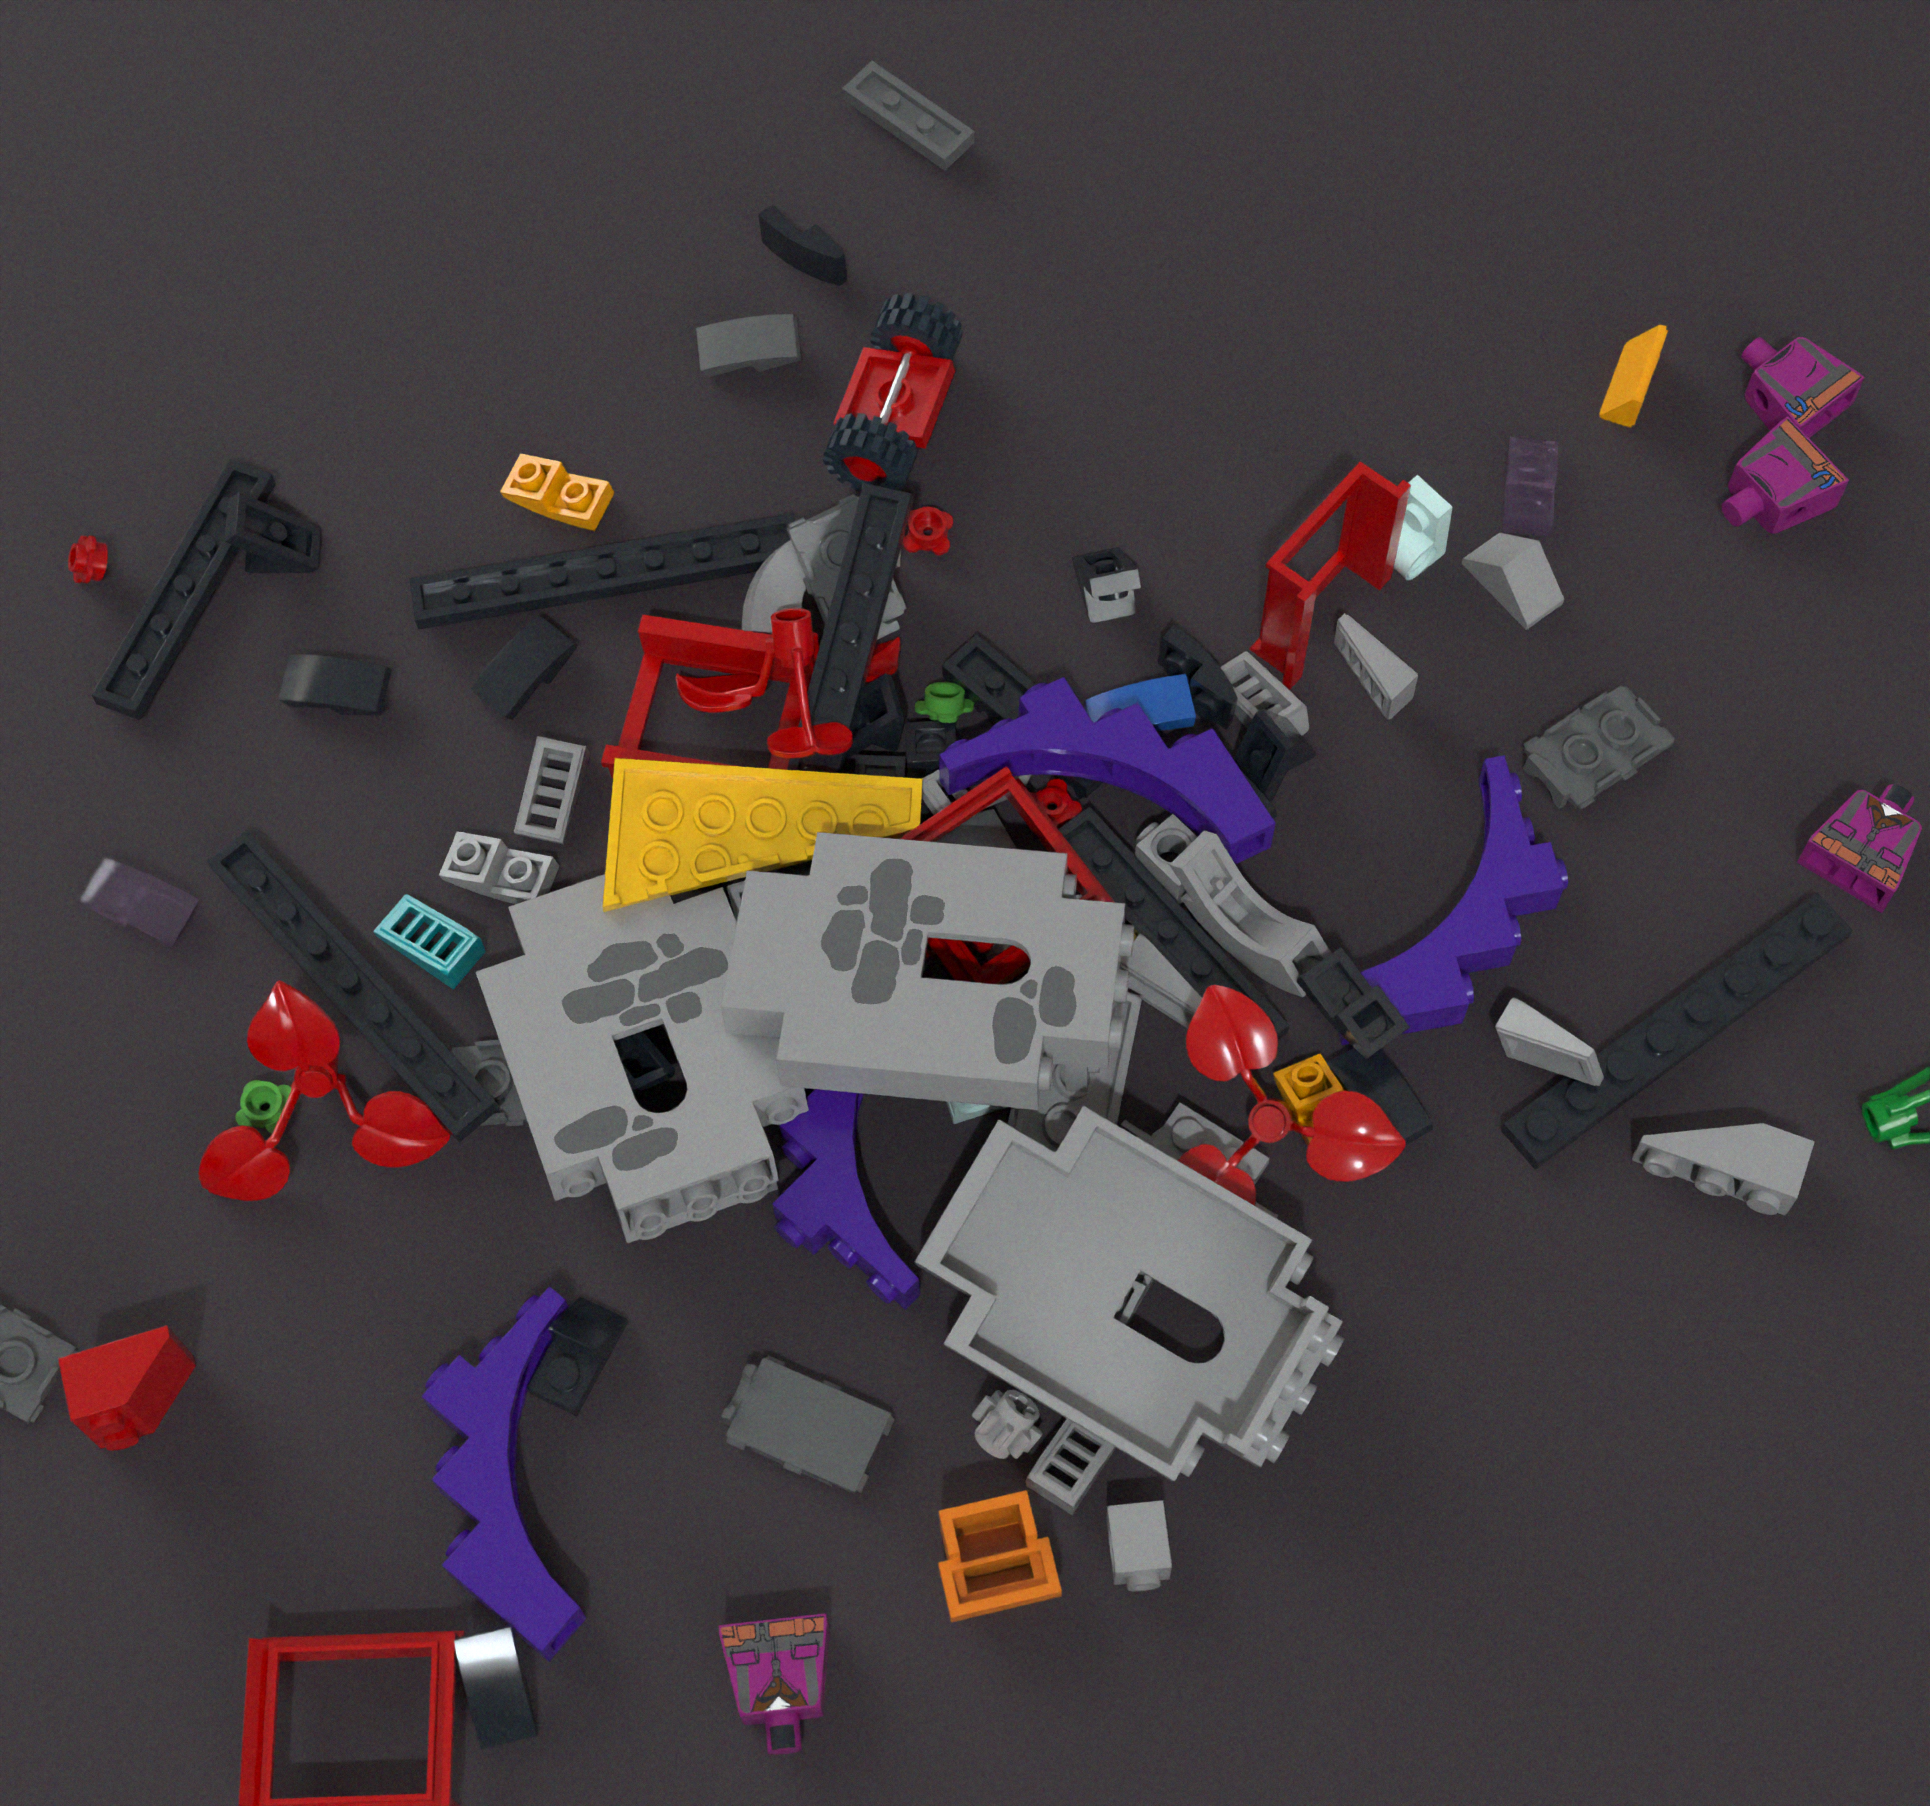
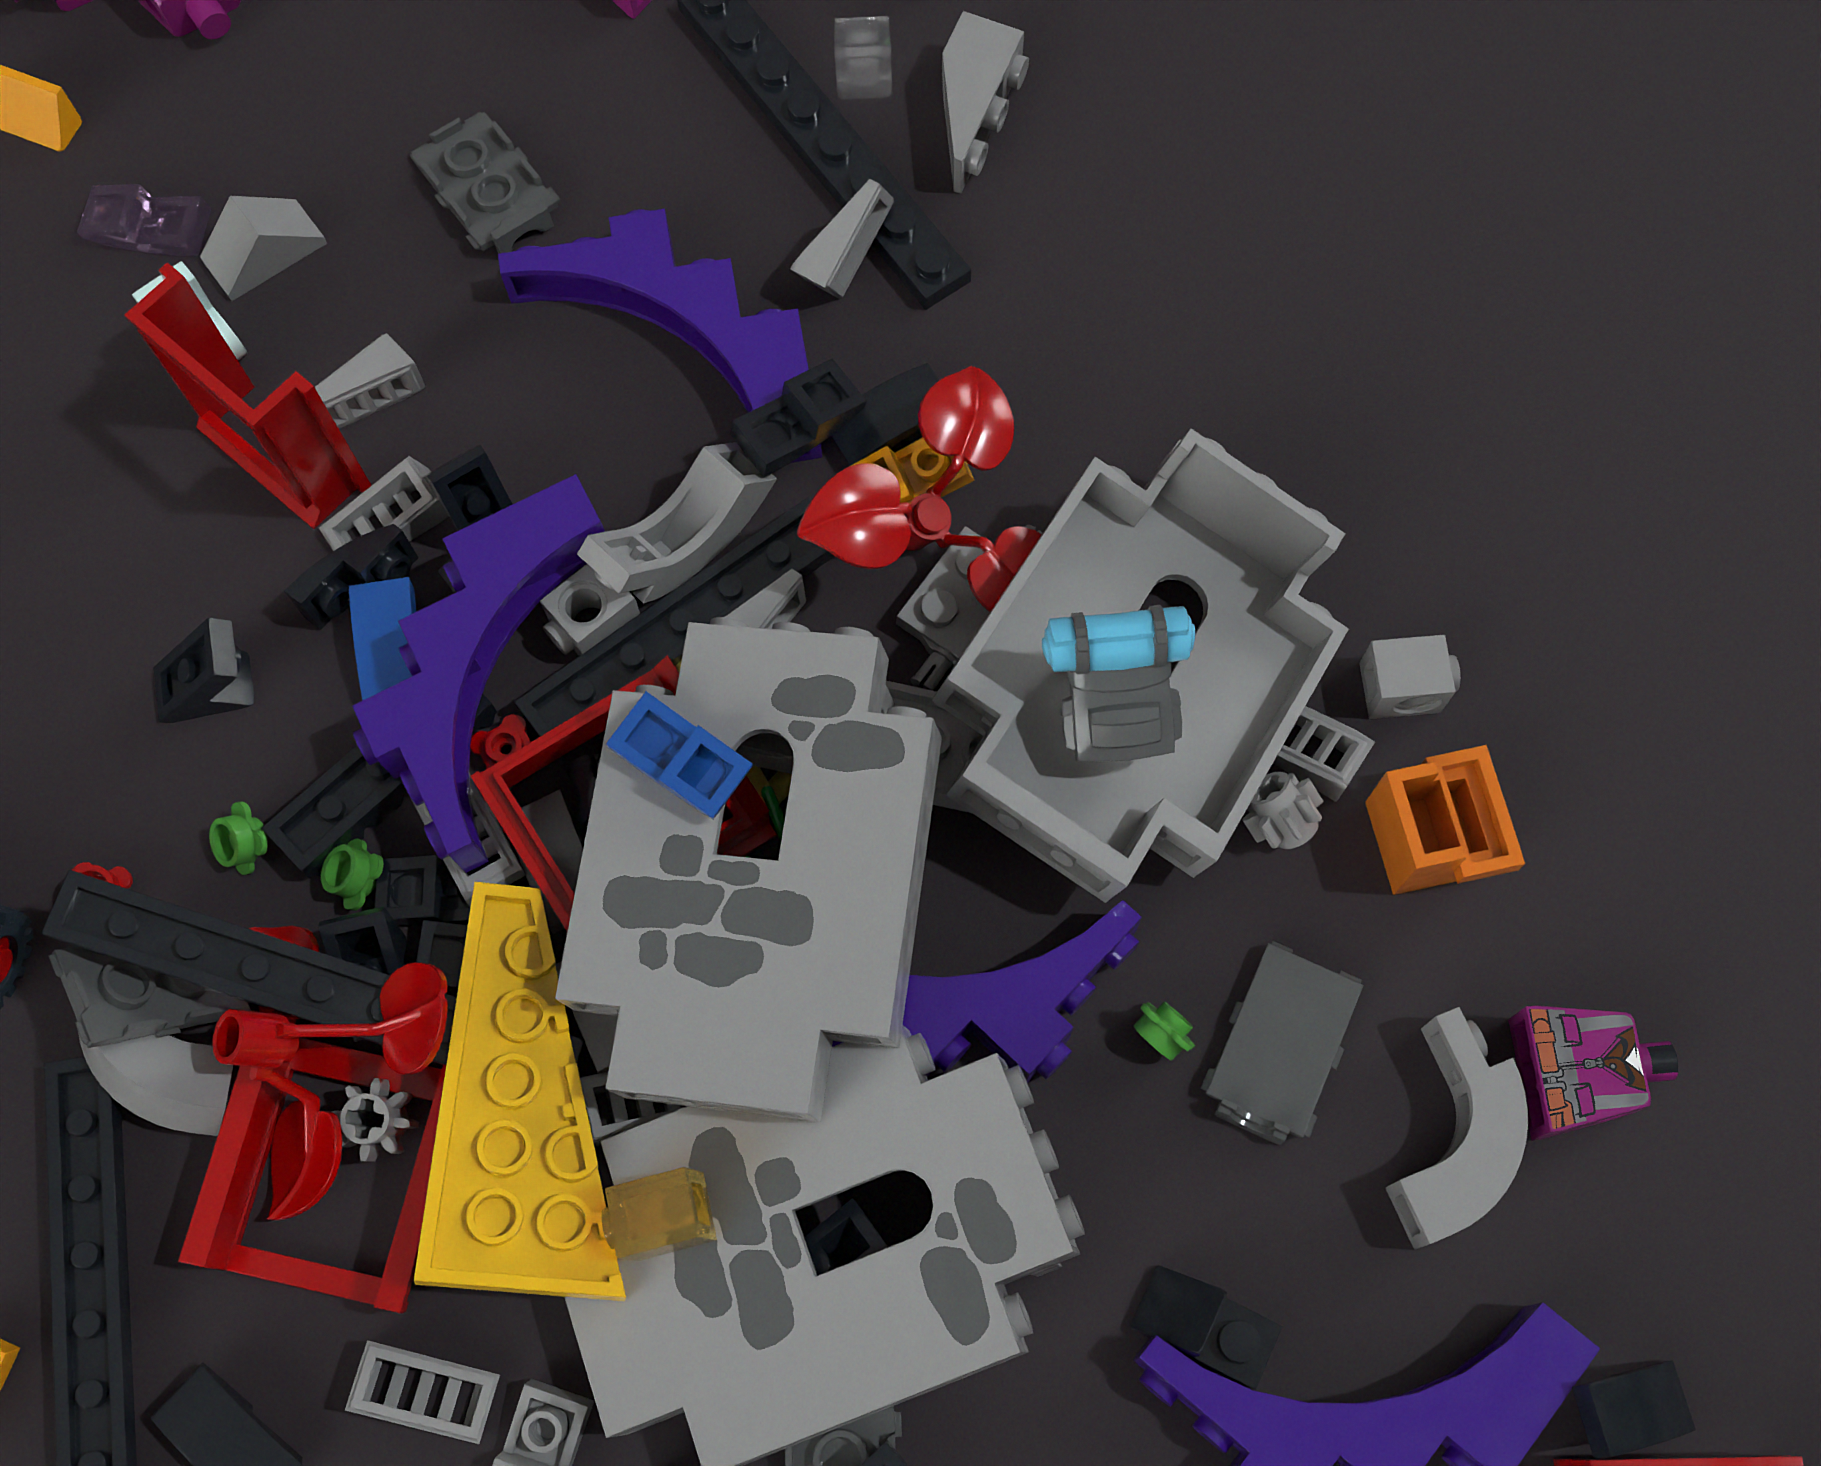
camera: 90 degrees left, 5 degrees up
(659, 923) = (658, 1214): none -> clear yellow brick
(716, 1583) = (1485, 1142): none -> light grey arch
(747, 737) = (395, 1123): none -> light grey gear
(815, 1322) = (1164, 1029): none -> bright green plate
(971, 620) = (238, 839): none -> bright green plate
(1007, 899) = (679, 755): none -> blue slope
(1082, 1244) = (1120, 680): none -> dark grey piece
(1769, 1054) = (863, 57): none -> clear slope

